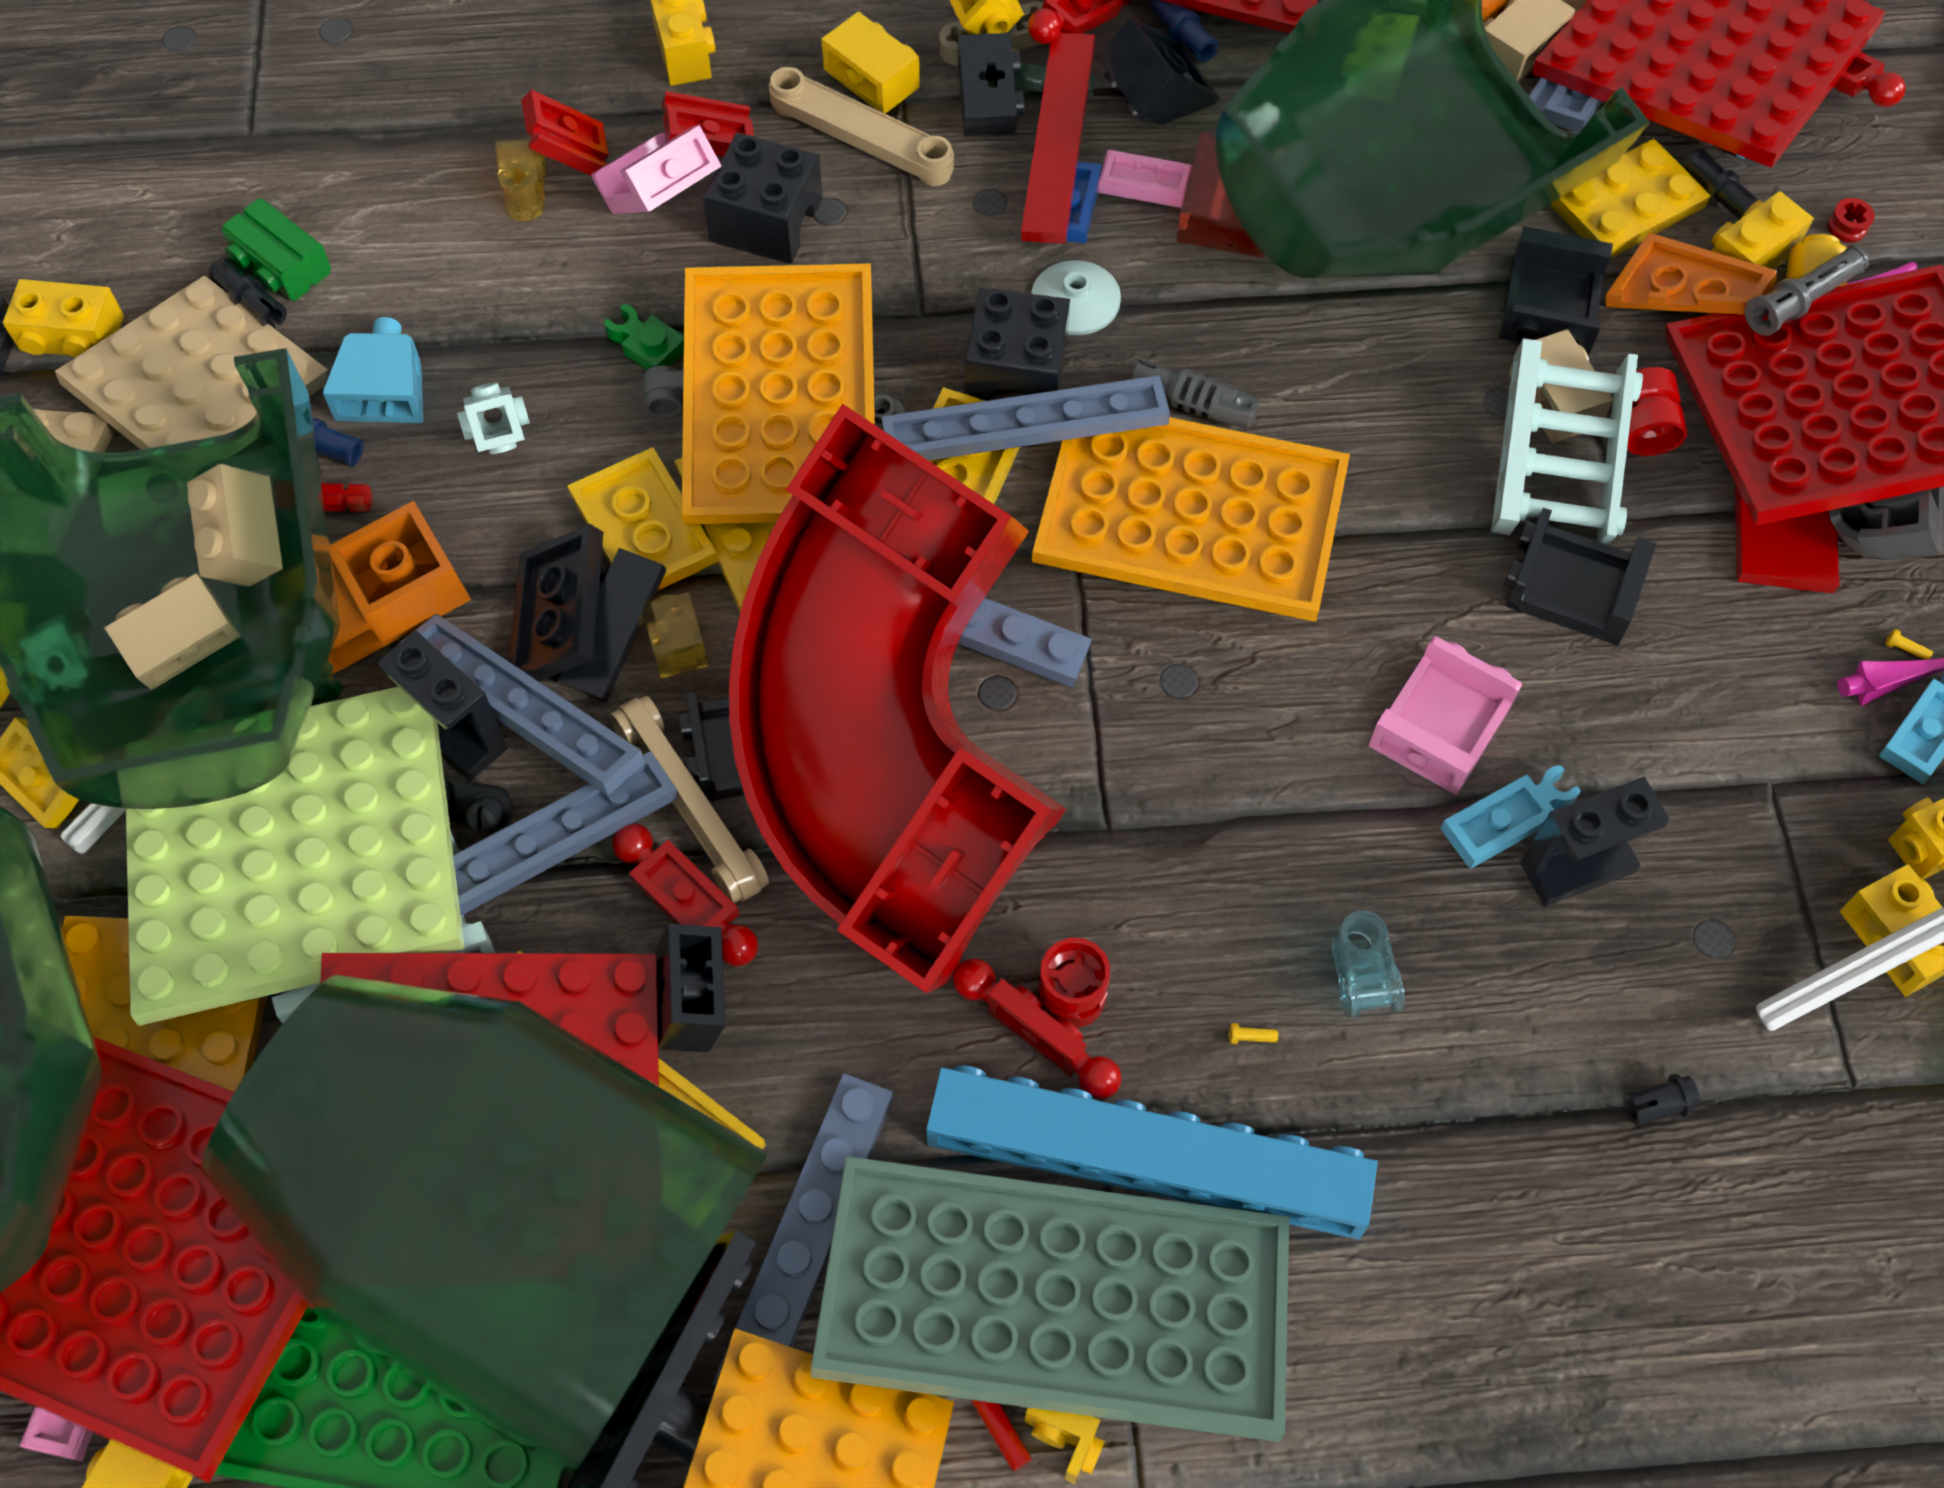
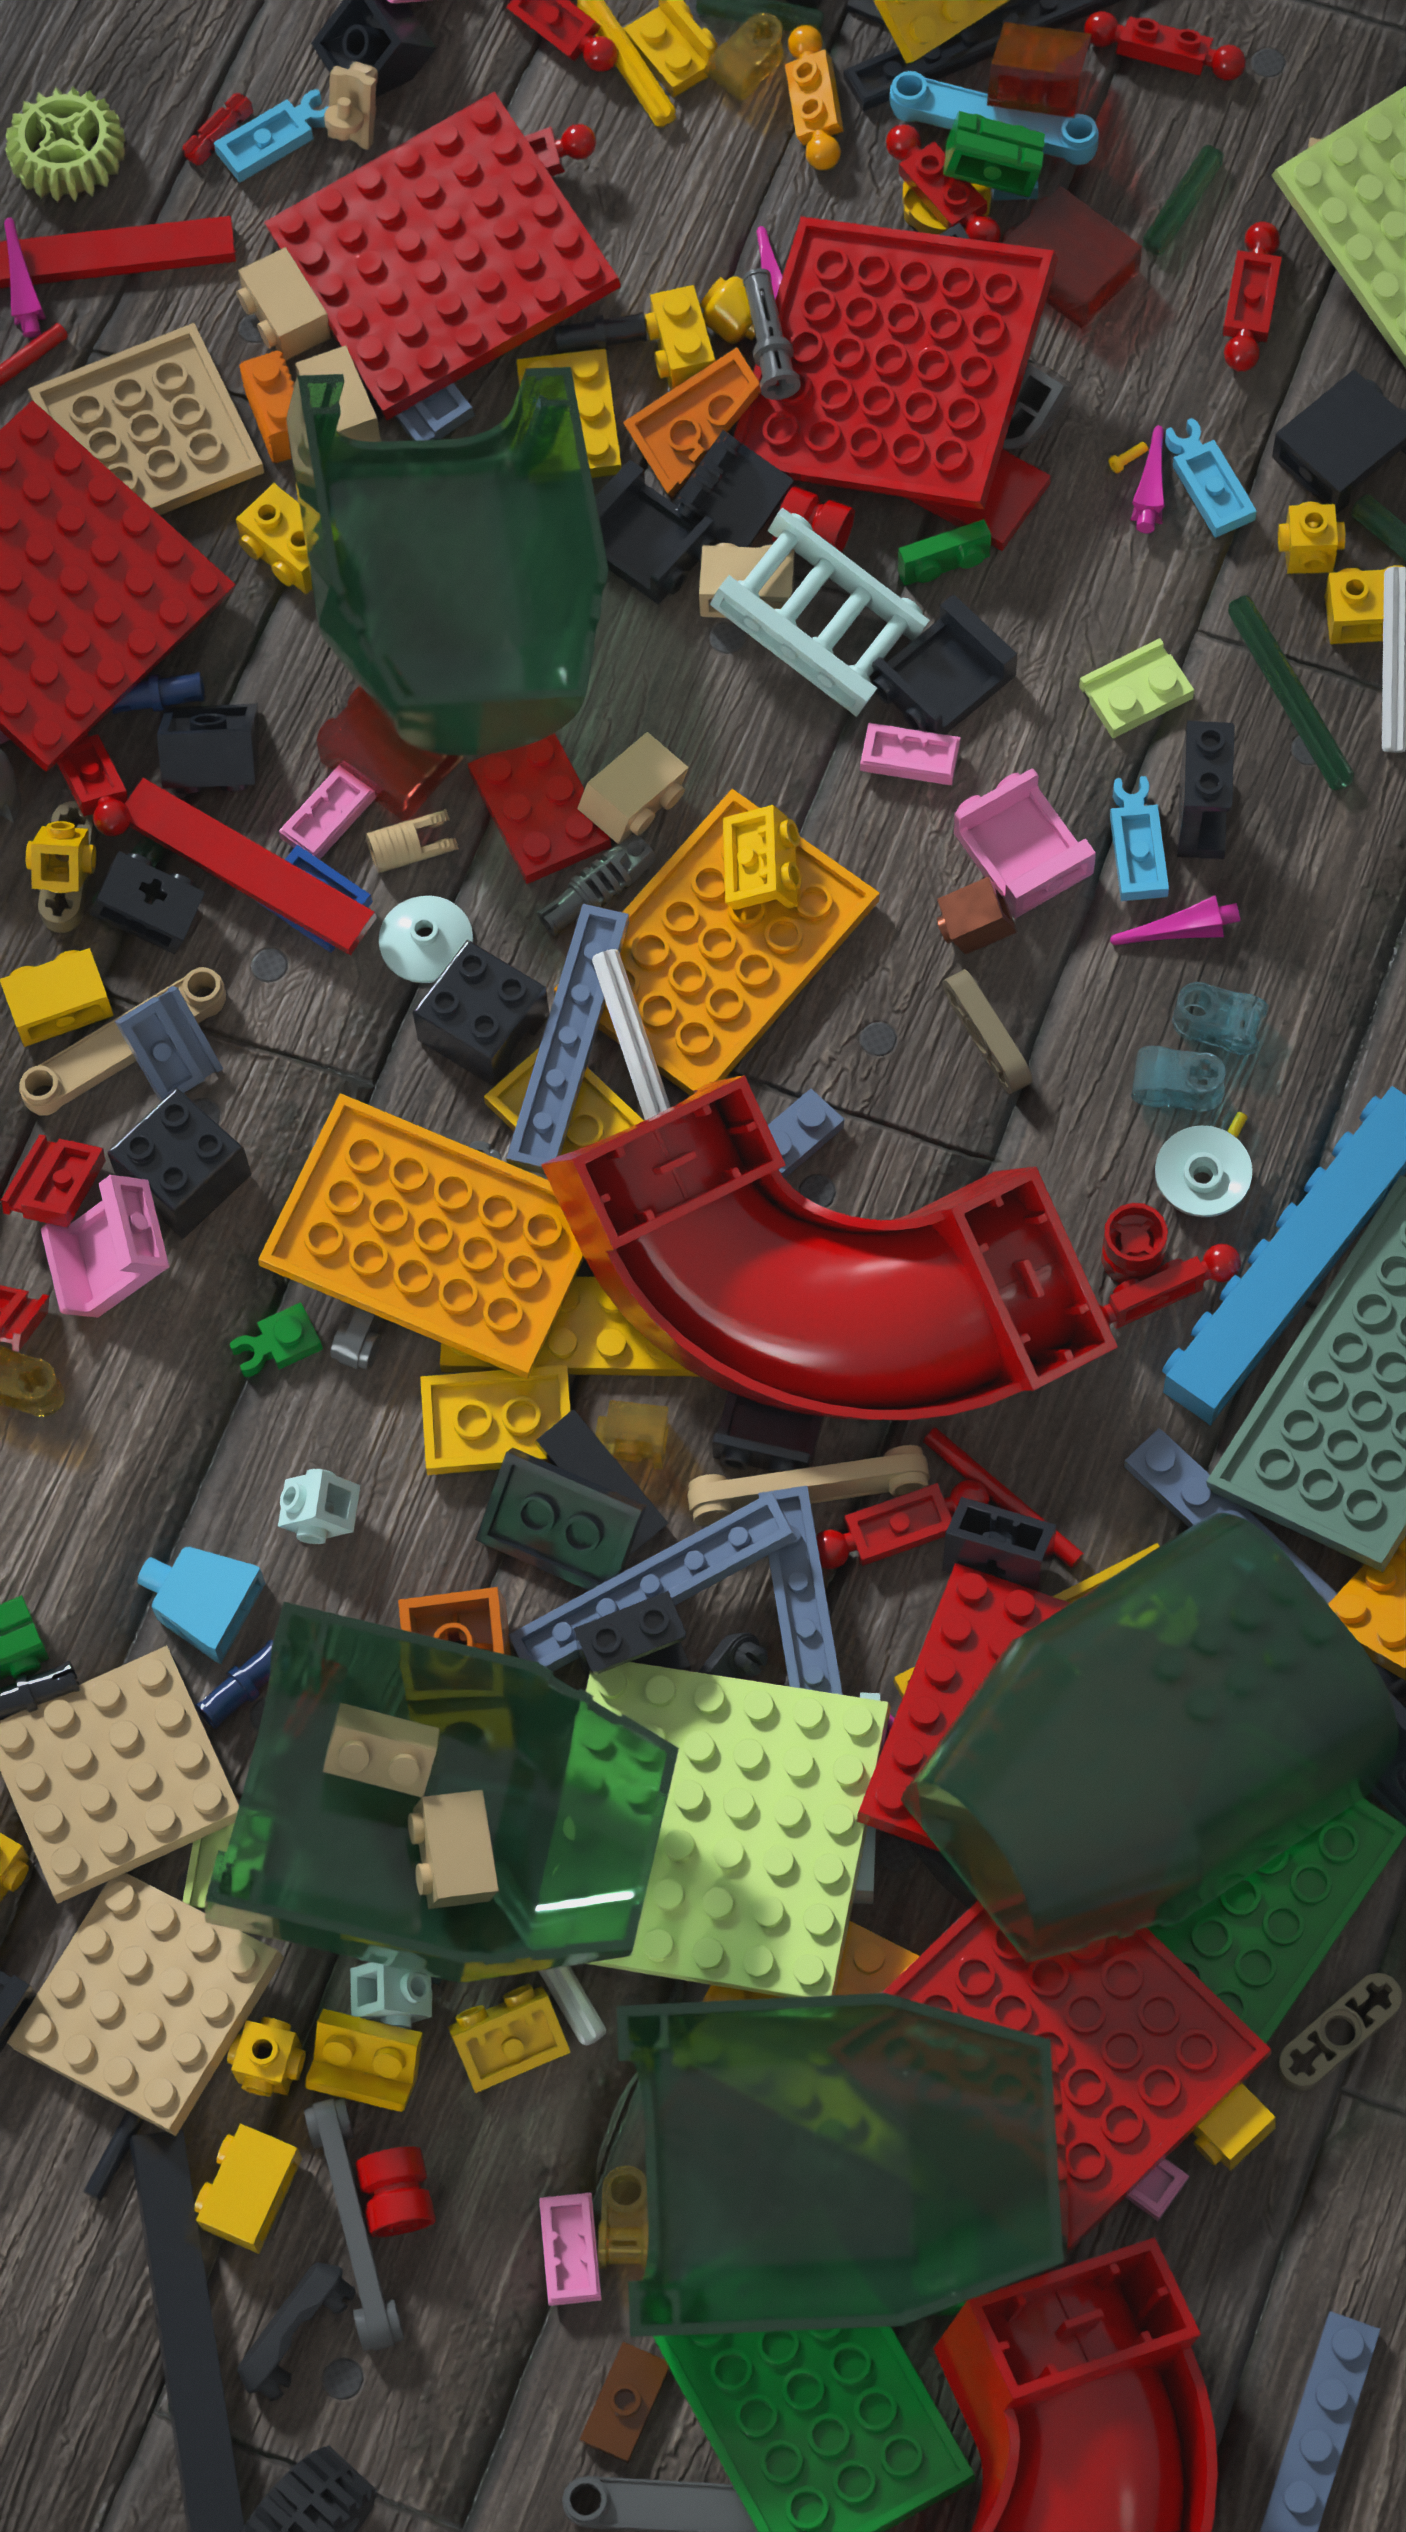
camera: 60 degrees left, 5 degrees up
(756, 981) = (996, 1490): none -> red bar
(867, 148) = (168, 1043): none -> sand blue plate
(1062, 458) = (631, 1033): none -> white axle
(1150, 240) = (400, 844): none -> tan hinge
(1195, 996) = (1206, 1151): none -> light aqua dish
(1231, 763) = (987, 1031): none -> dark tan beam
(1248, 324) = (535, 805): none -> red plate
(1276, 948) = (1173, 1077): none -> clear light blue piece
(1289, 498) = (760, 858): none -> yellow bracket
(1300, 375) = (634, 788): none -> tan brick
(1342, 701) = (975, 916): none -> copper brick
(1460, 906) = (1197, 921): none -> dark pink piece
(1477, 585) = (910, 754): none -> bright pink plate
(1649, 329) = (734, 490): none -> black hinge
(1672, 751) = (1136, 688): none -> yellowish green plate
(1698, 527) = (944, 552): none -> green plate
(1758, 894) = (1291, 693): none -> clear green axle
(1855, 209) = (678, 256): red bush -> none

